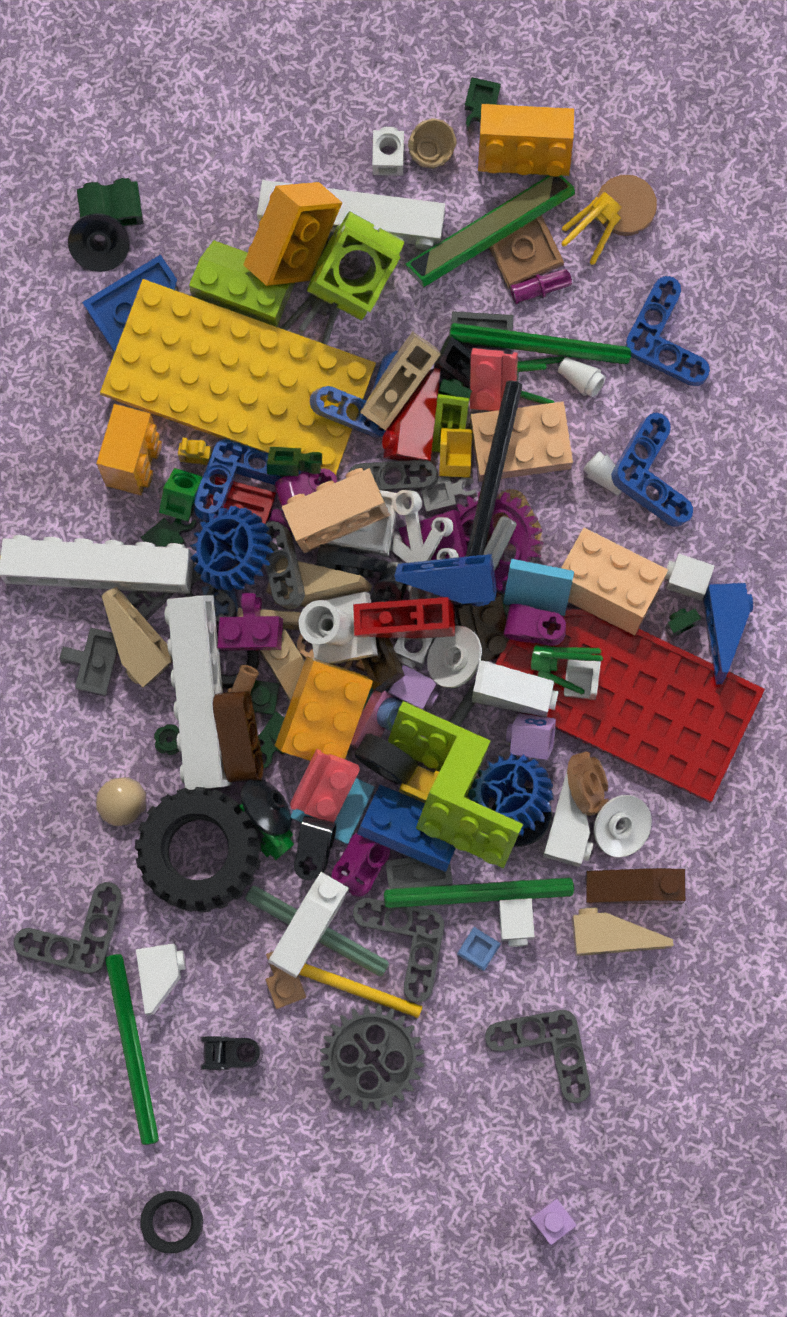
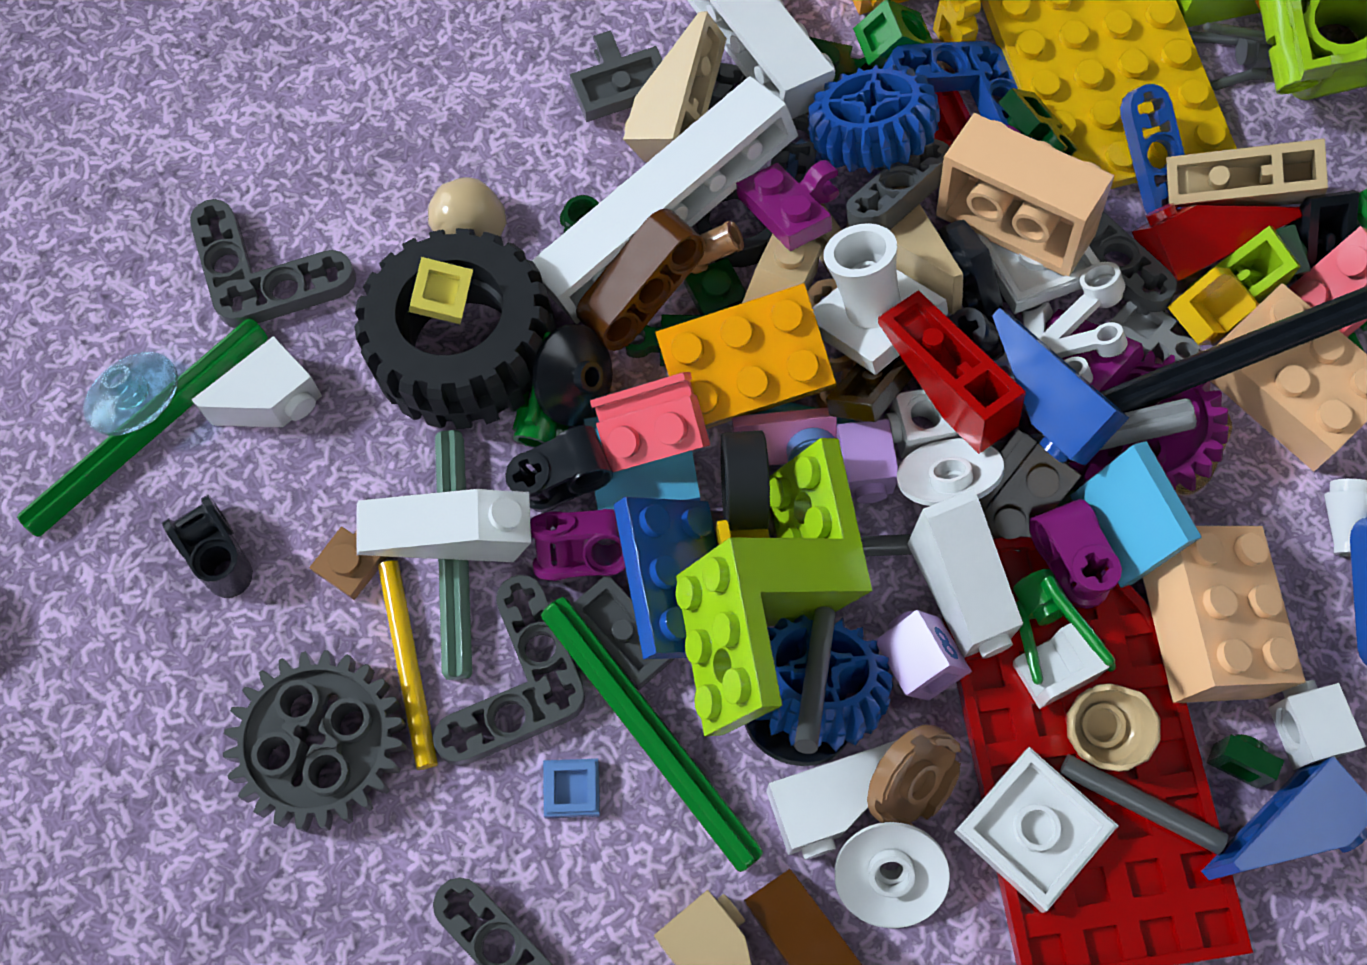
camera: 55 degrees right, 10 degrees down
(120, 1041) = (130, 393): none -> clear light blue dish
(187, 845) = (440, 290): none -> light yellow plate
(514, 797) = (815, 681): none -> dark grey bar
(516, 921) = (644, 813): white brick -> none
(628, 675) = (1113, 727): none -> tan hair
(647, 744) = (1036, 829): none -> white tile
(669, 687) = (1144, 804): none -> dark grey bar

